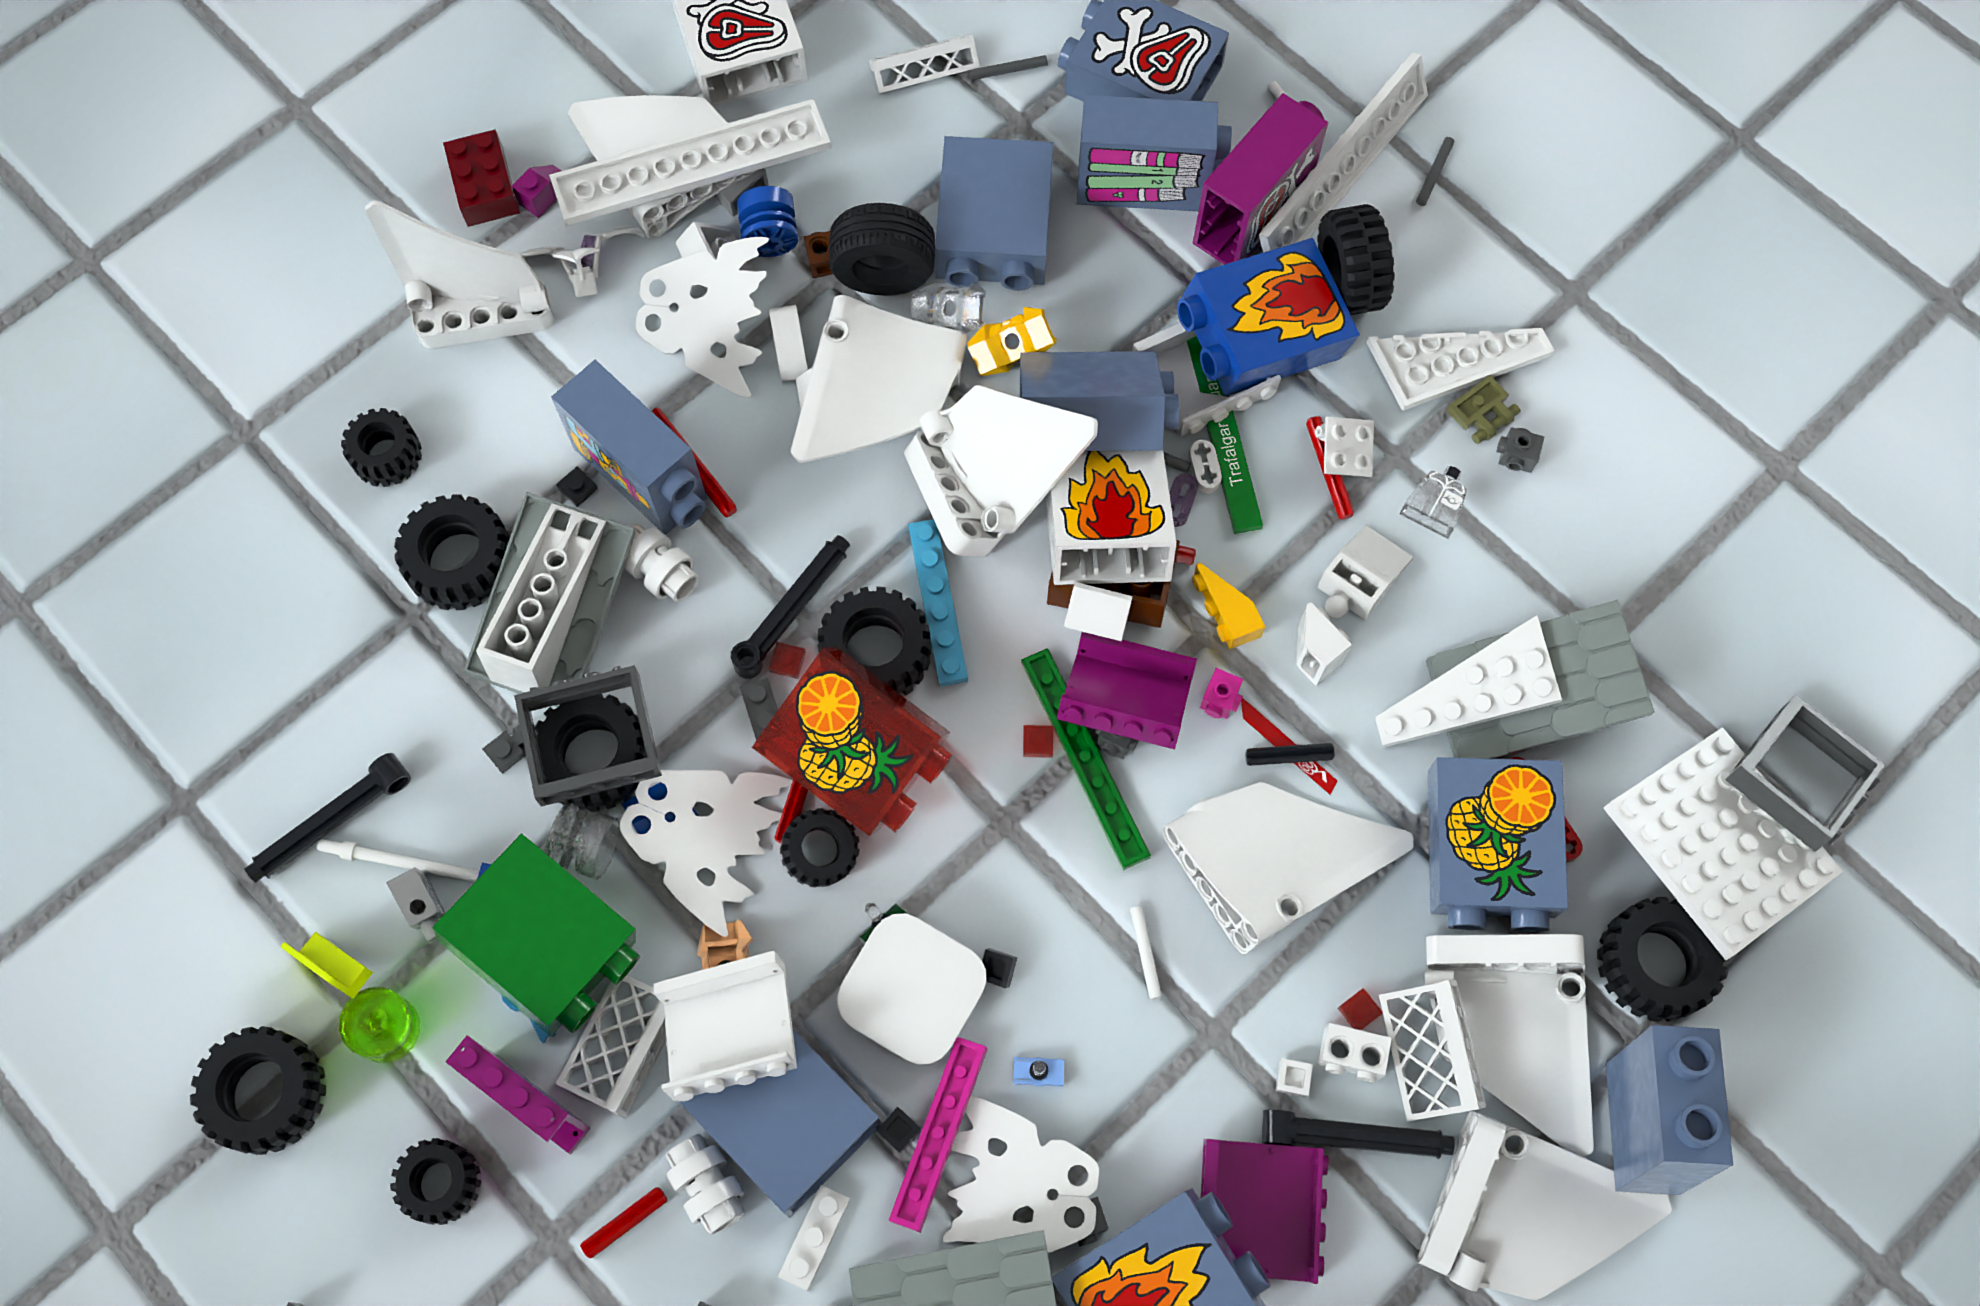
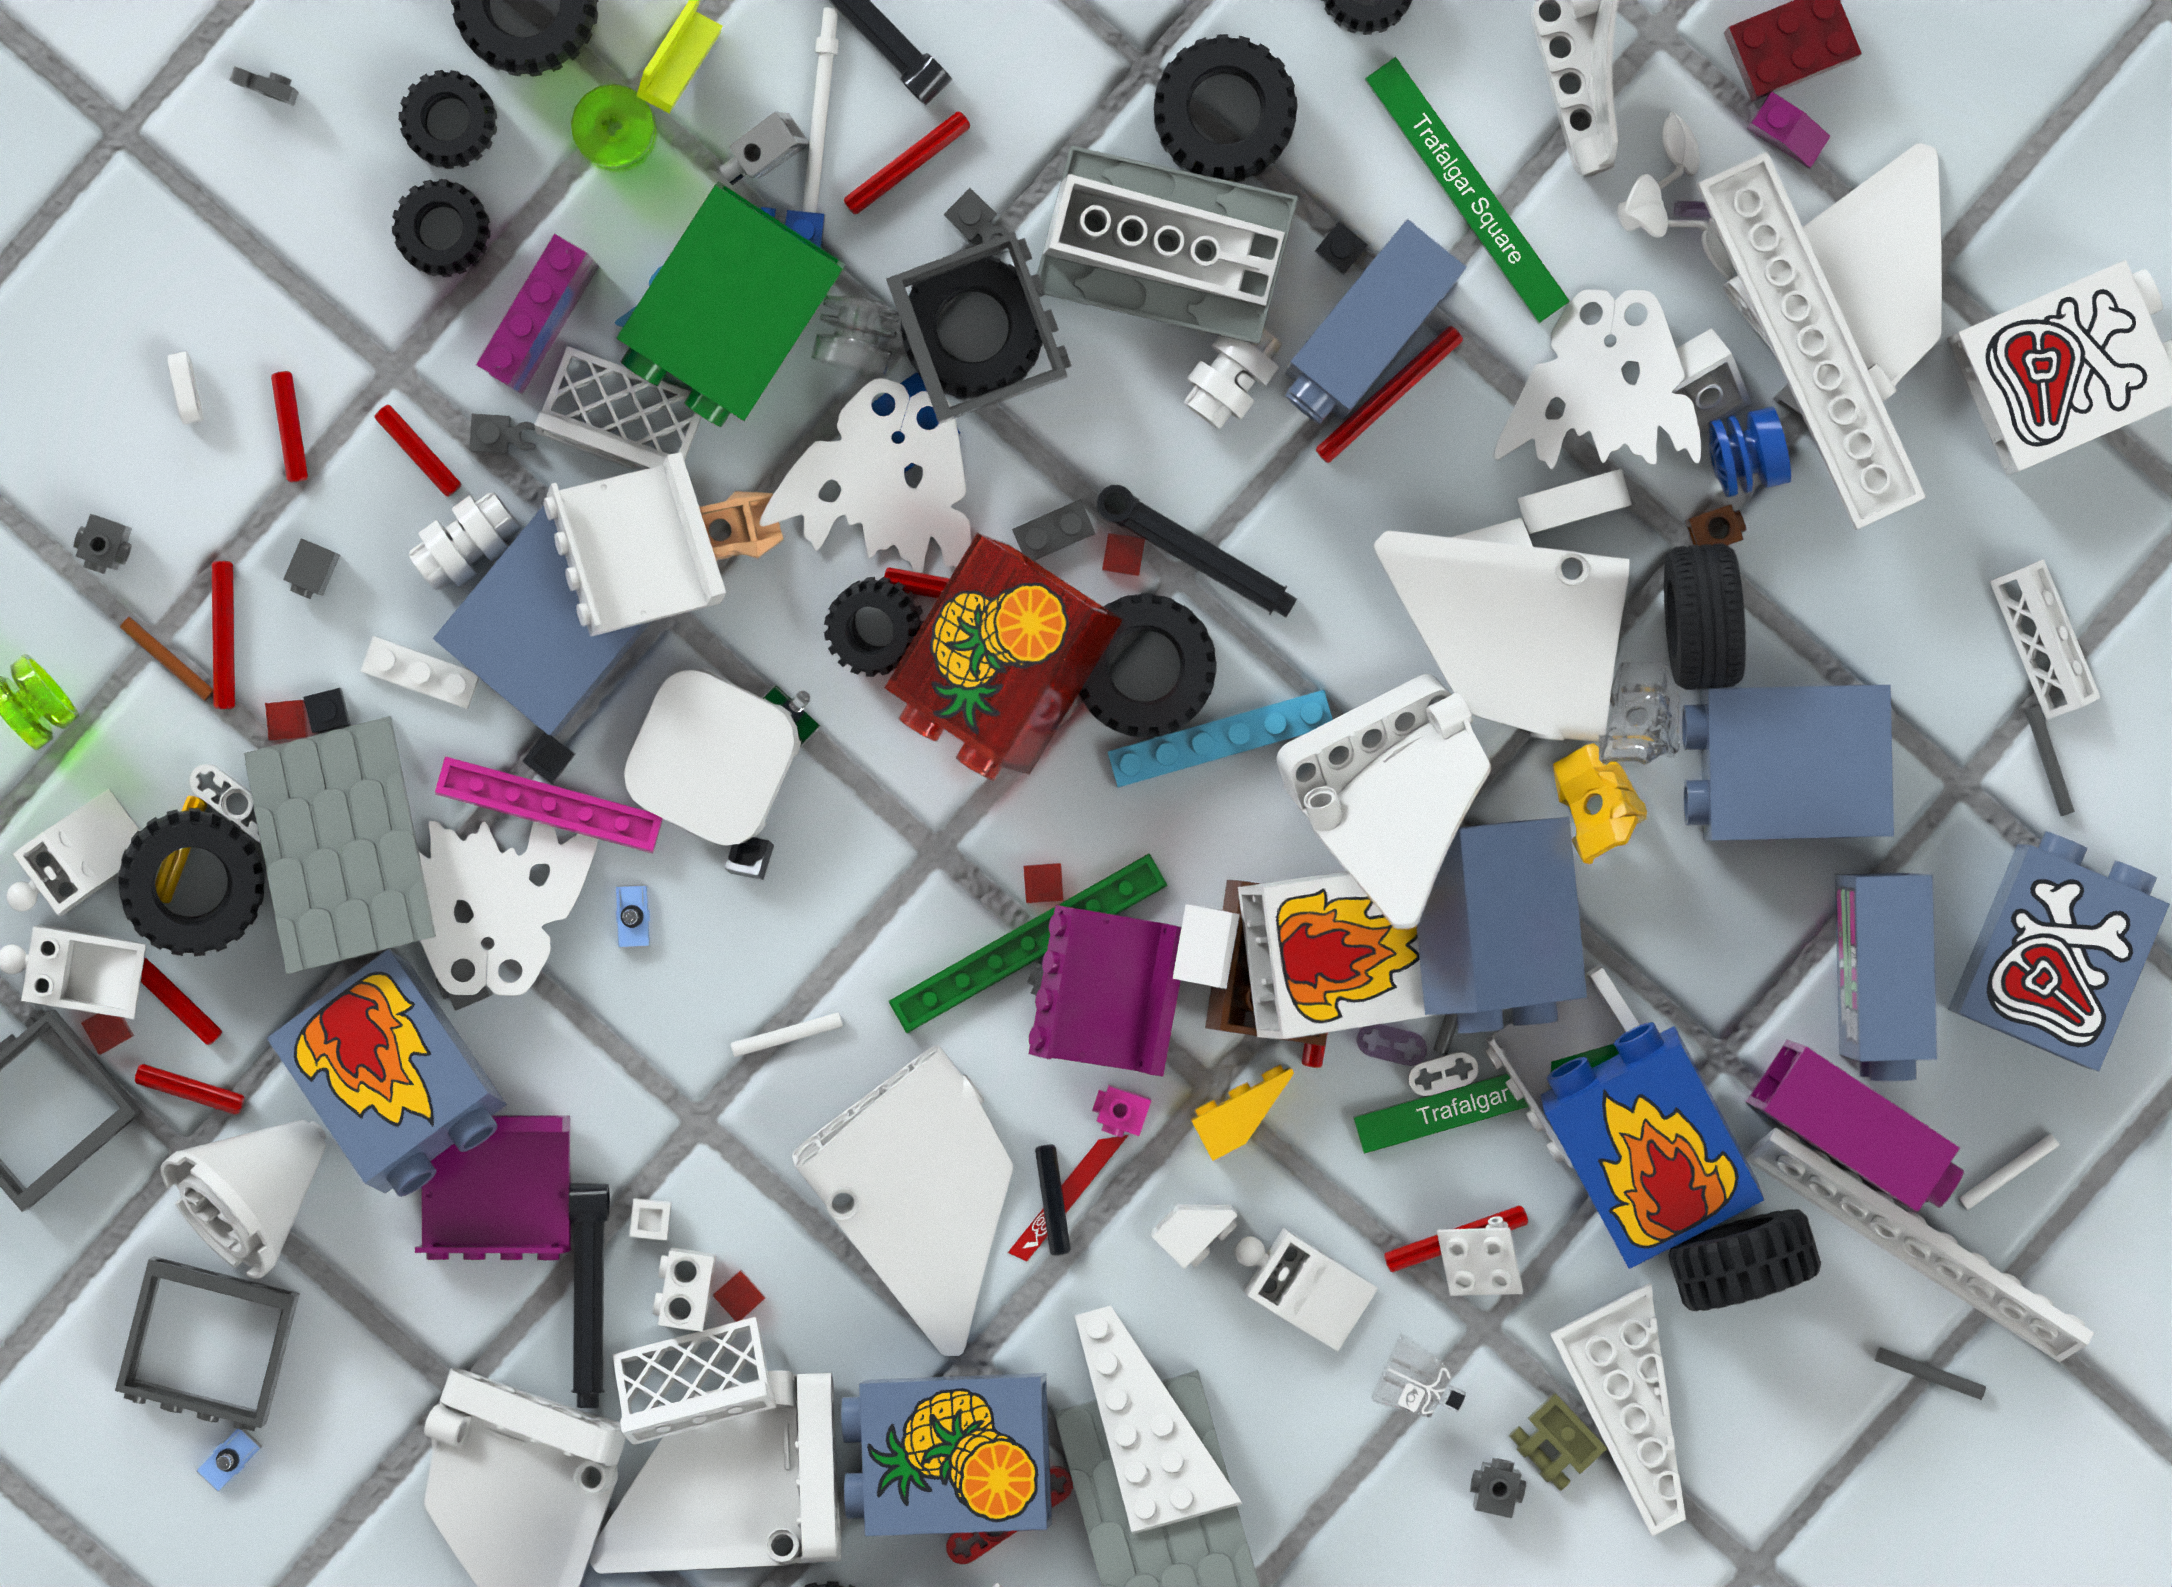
camera: 85 degrees right, 20 degrees up
(323, 1153) = (420, 102): none -> black tyre
(454, 796) = (907, 162): none -> red axle
(538, 402) = (1467, 190): none -> green tile
(620, 1154) = (494, 434): none -> dark grey plate

